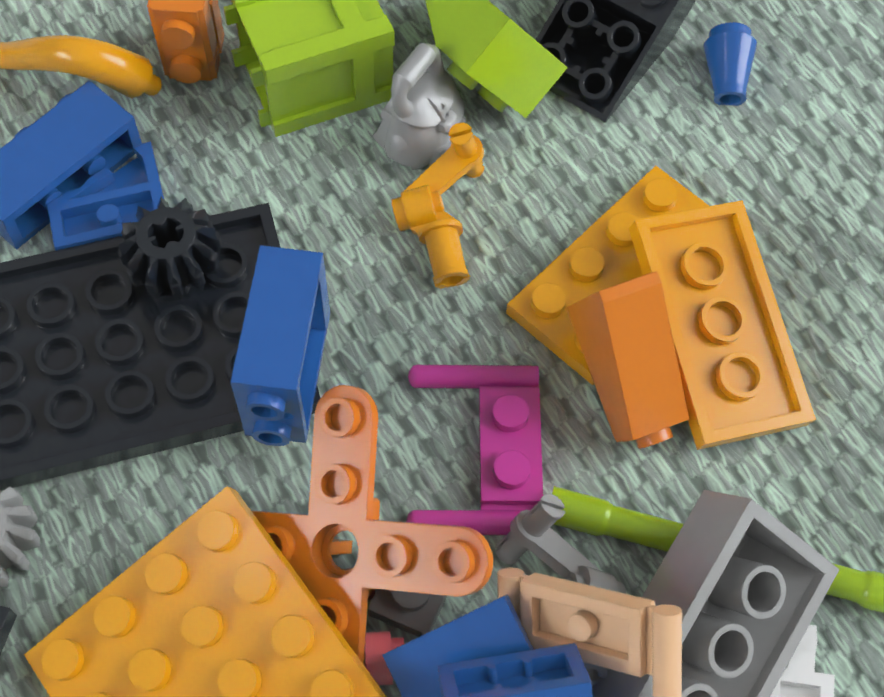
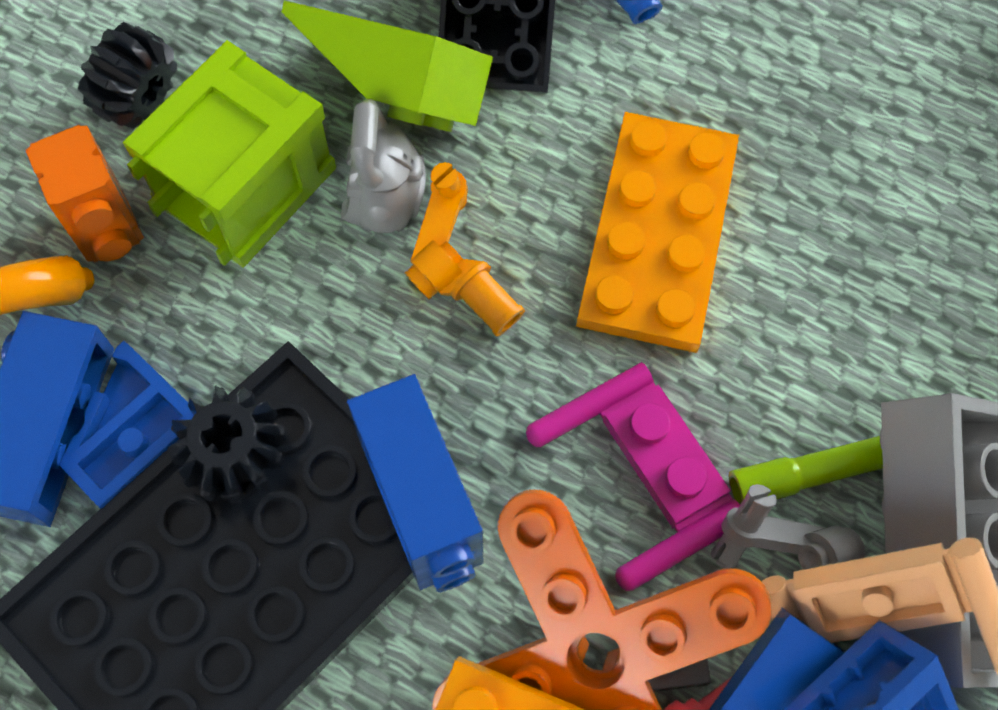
camera: 30 degrees left, 5 degrees up
(632, 359) = (736, 309): orange slope -> none
(723, 324) = (783, 235): light orange plate -> none

